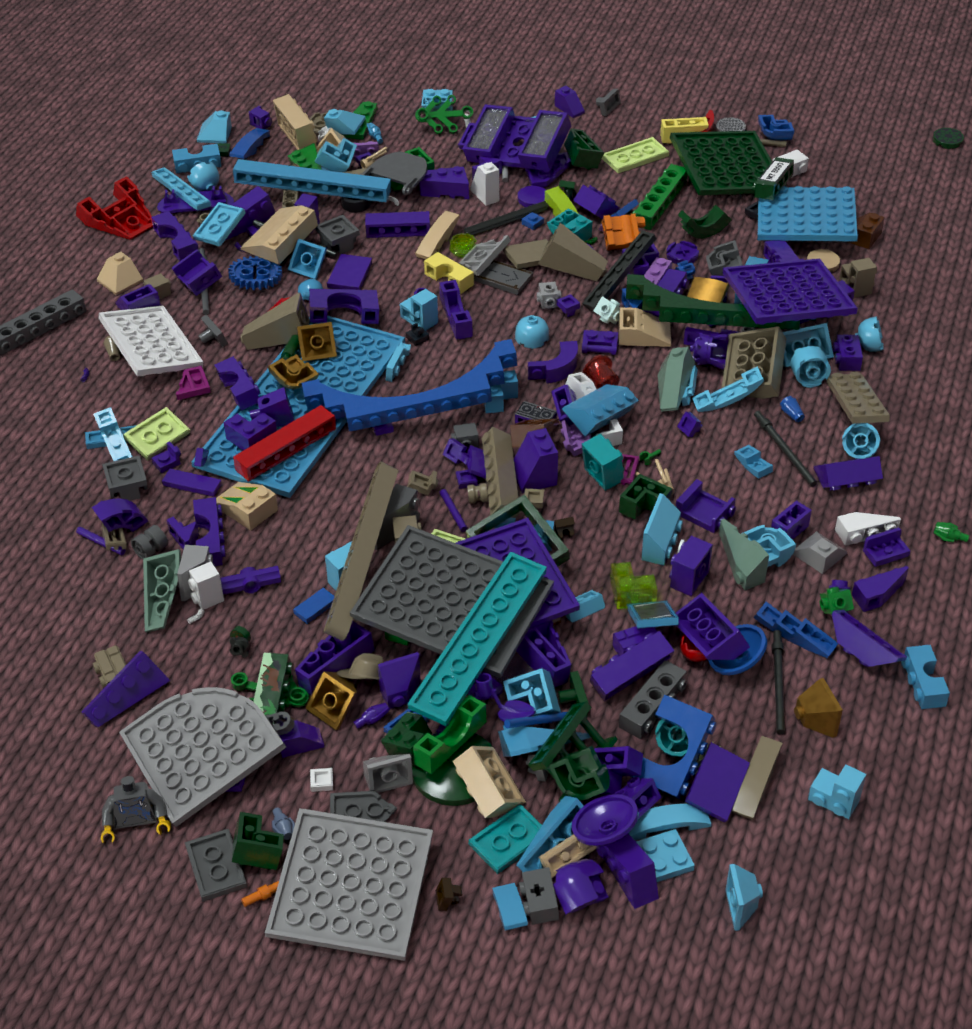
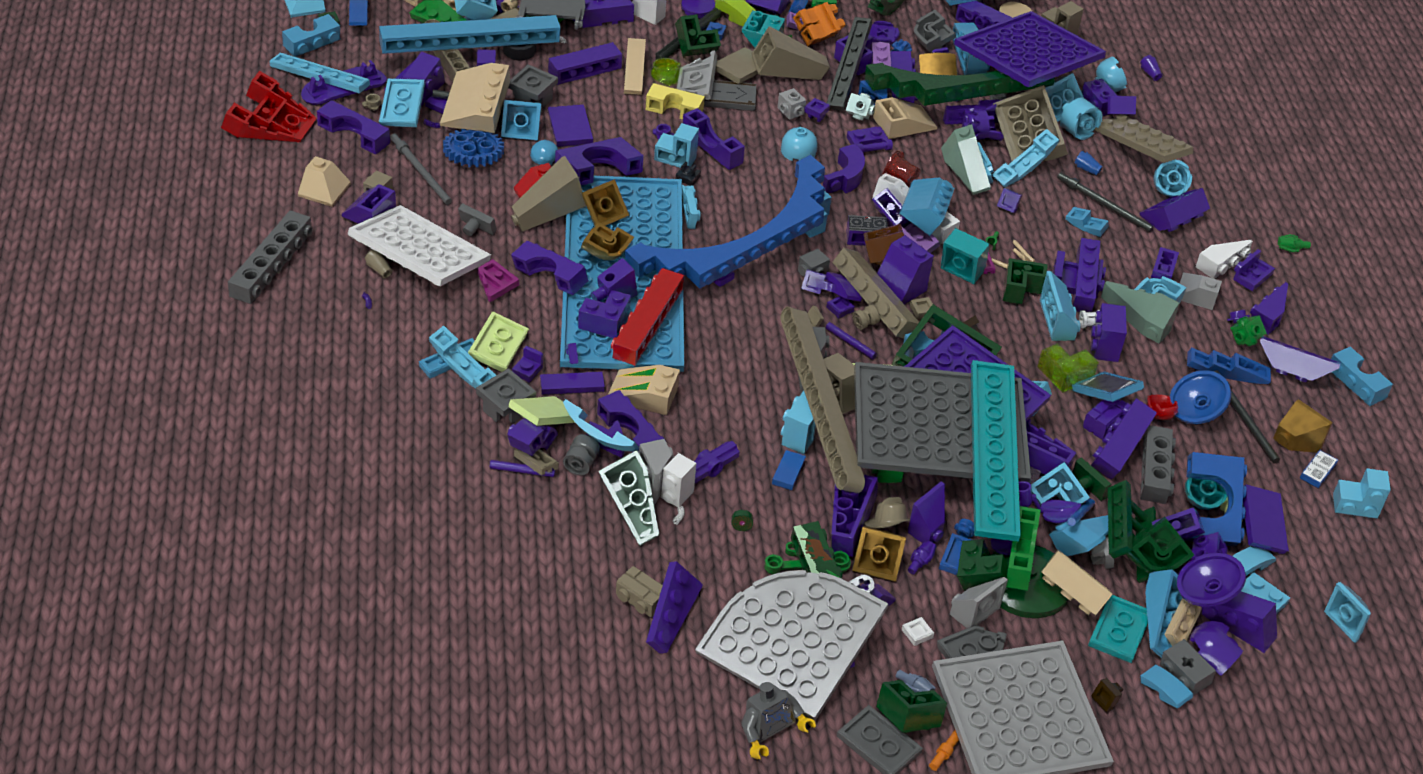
camera: 30 degrees left, 0 degrees up
(144, 498) = (542, 410): none -> yellowish green tile
(159, 510) = (618, 442): none -> medium azure slope
(196, 272) = (413, 161): dark purple panel -> none
(204, 176) = (340, 54): medium azure cylinder -> none
(239, 646) = (752, 526): pearl dark grey plate -> none
(291, 347) = (579, 218): dark green cylinder -> none
(501, 224) = (693, 40): none -> dark green brick
(701, 515) = (1087, 273): none -> dark purple arch
(710, 630) = (1173, 384): dark purple slope -> none
(757, 777) = (1285, 482): dark tan slope -> none
(819, 752) = (1319, 469): none -> tile
(861, 363) = (1122, 105): none -> dark purple slope
(922, 336) = (1151, 67): none -> dark purple cone

